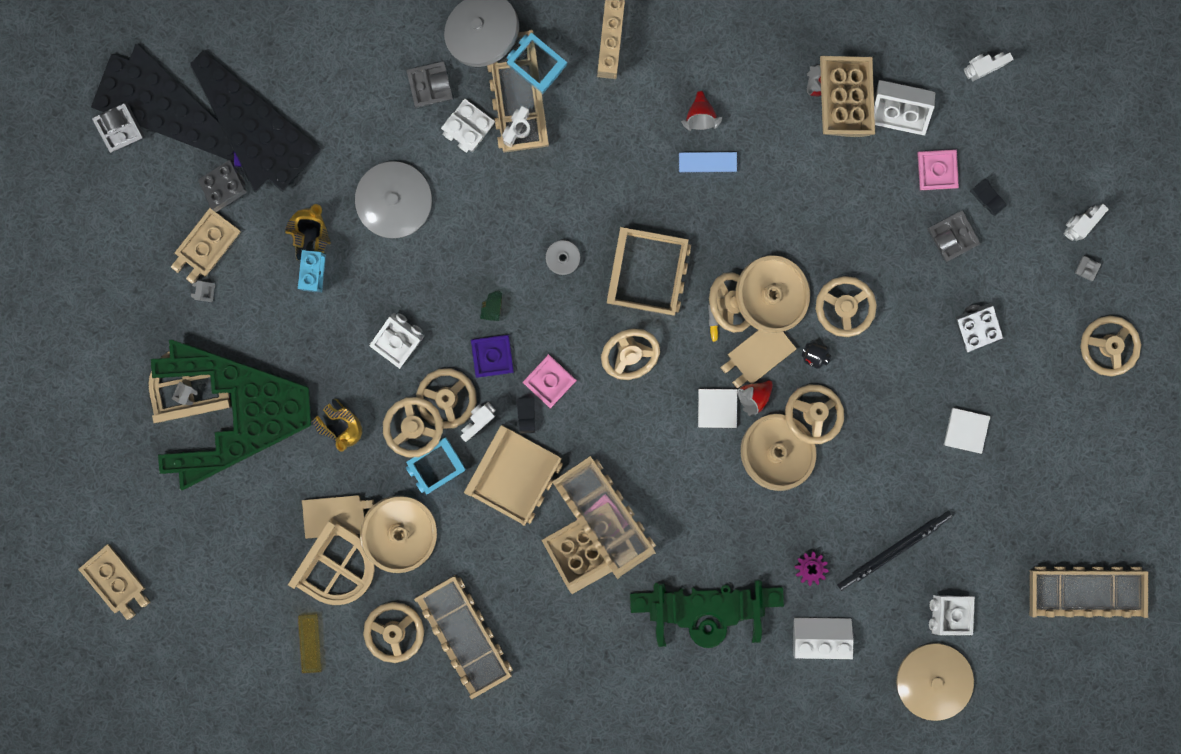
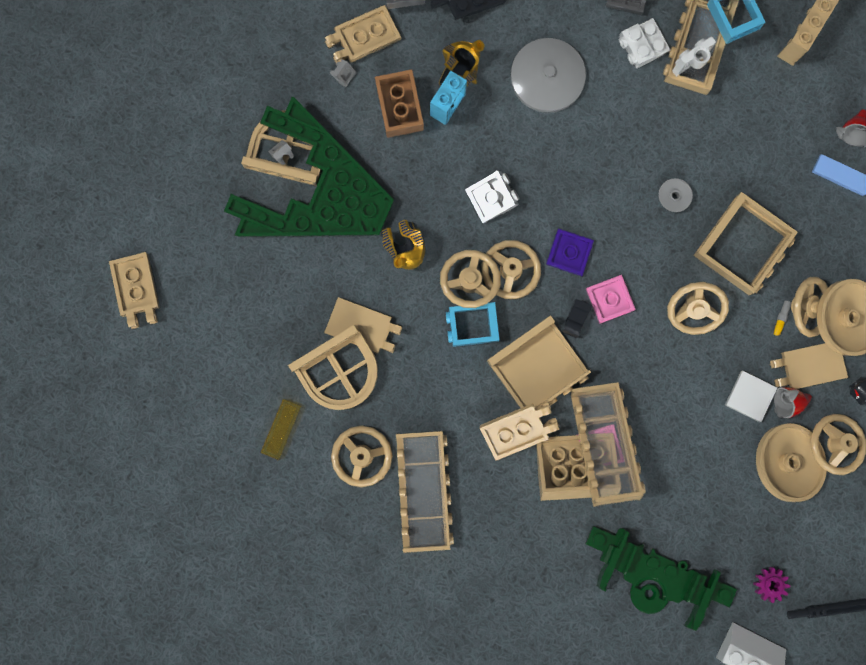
camera: 25 degrees right, 5 degrees down
(269, 296) = (399, 103): none -> medium nougat brick
(398, 534) = (410, 368): tan dish -> none
(480, 417) = (535, 299): white plate -> none
(492, 307) = (590, 208): clear green rock -> none
(521, 542) = (518, 430): none -> tan tile

